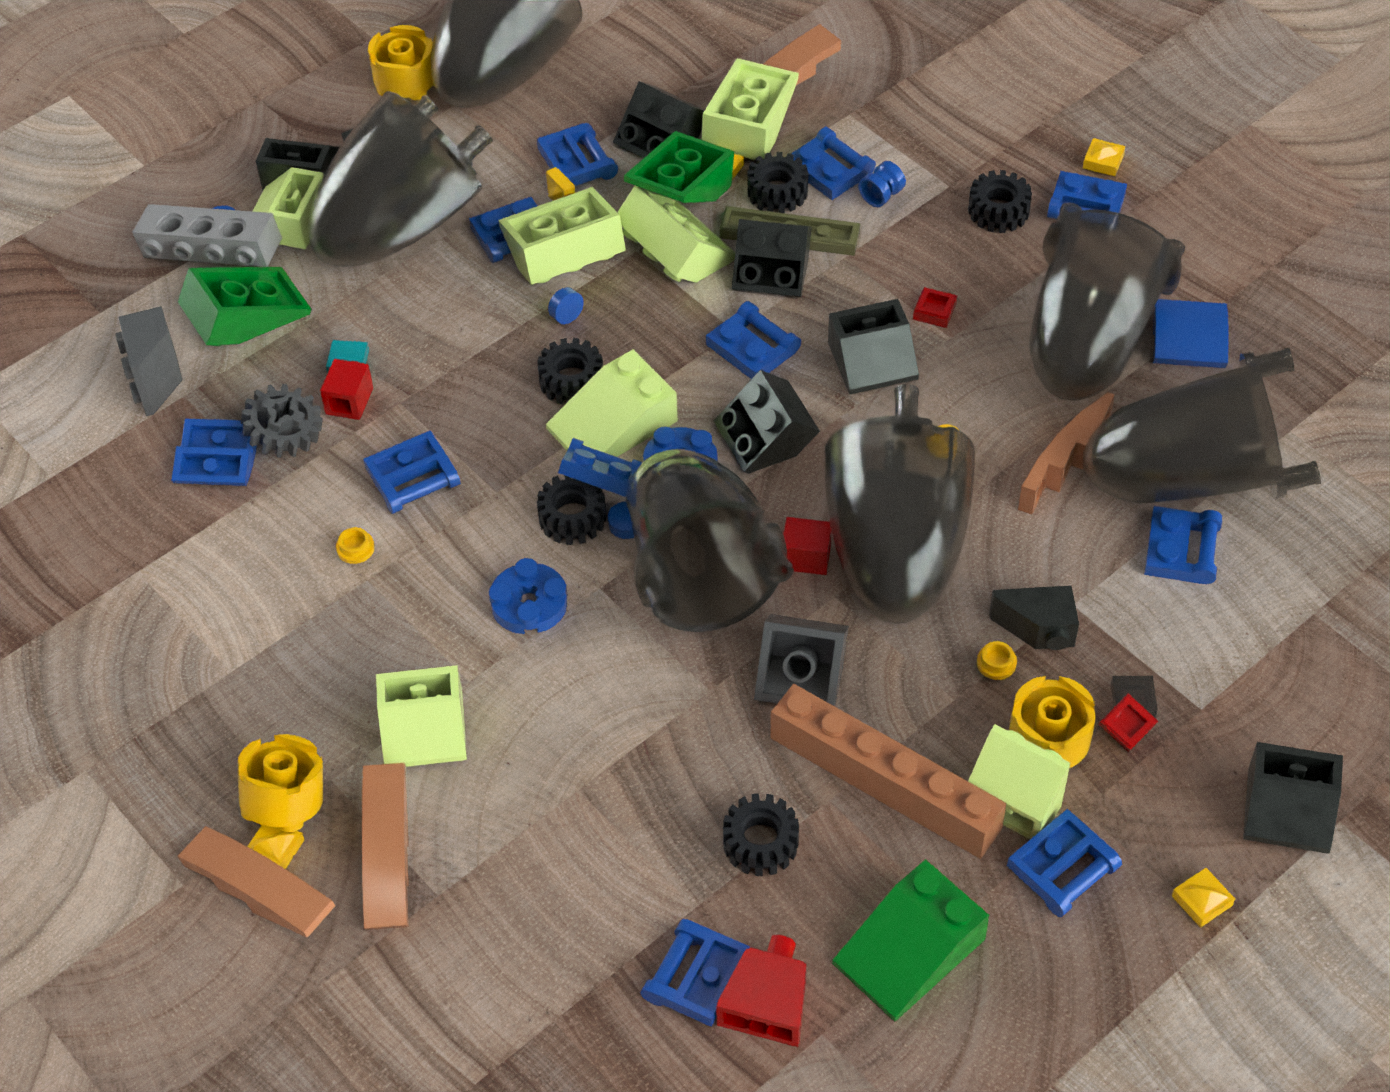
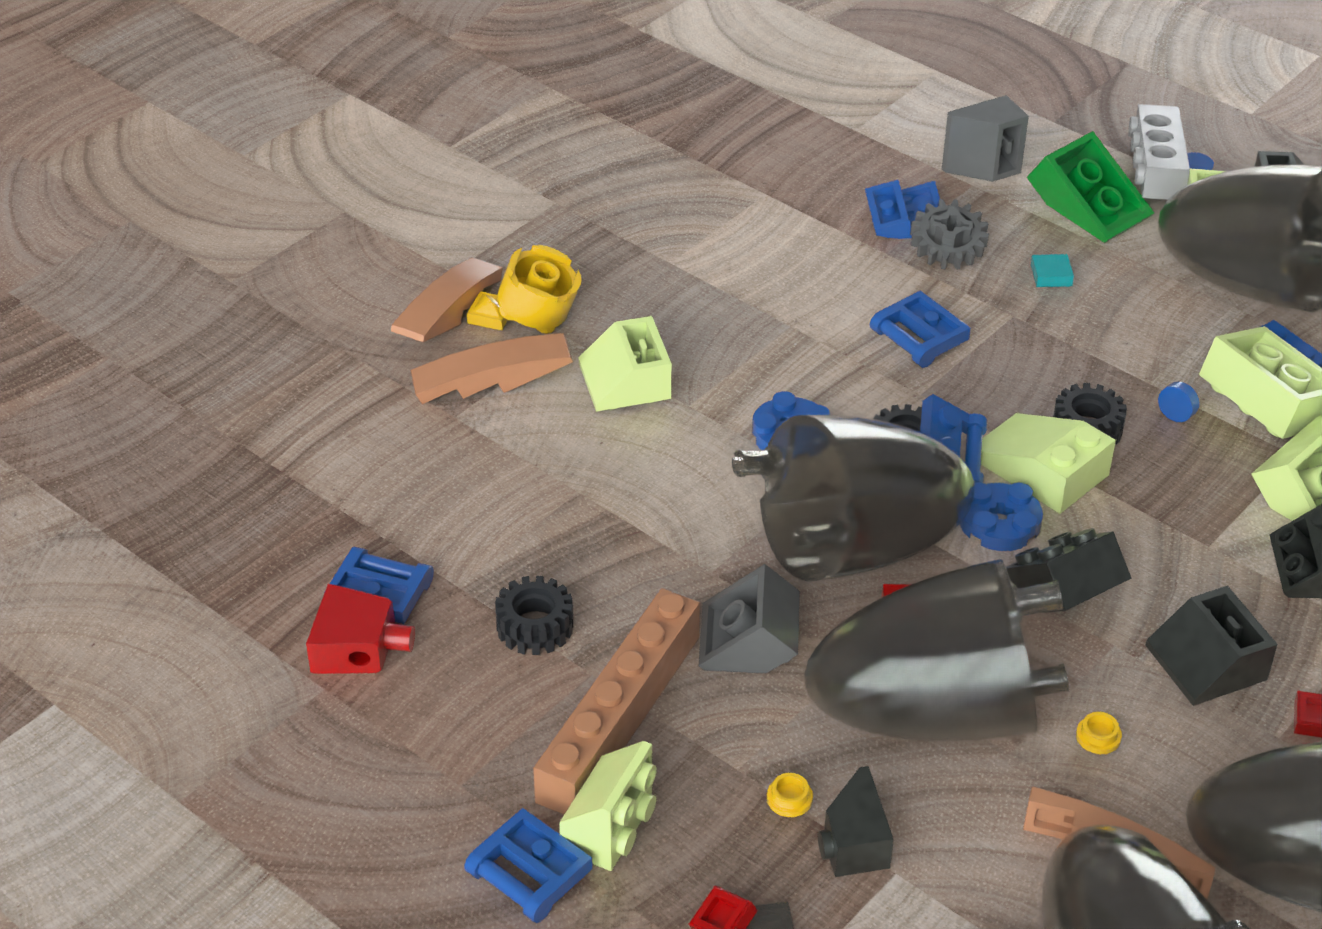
camera: 80 degrees right, 10 degrees down
(346, 389) = (1007, 270): red brick -> none
(355, 545) = (821, 306): yellow plate -> none
(746, 349) = (1182, 550): blue plate -> none
(912, 940) = (426, 742): green slope -> none
(1055, 716) = (698, 835): yellow brick -> none

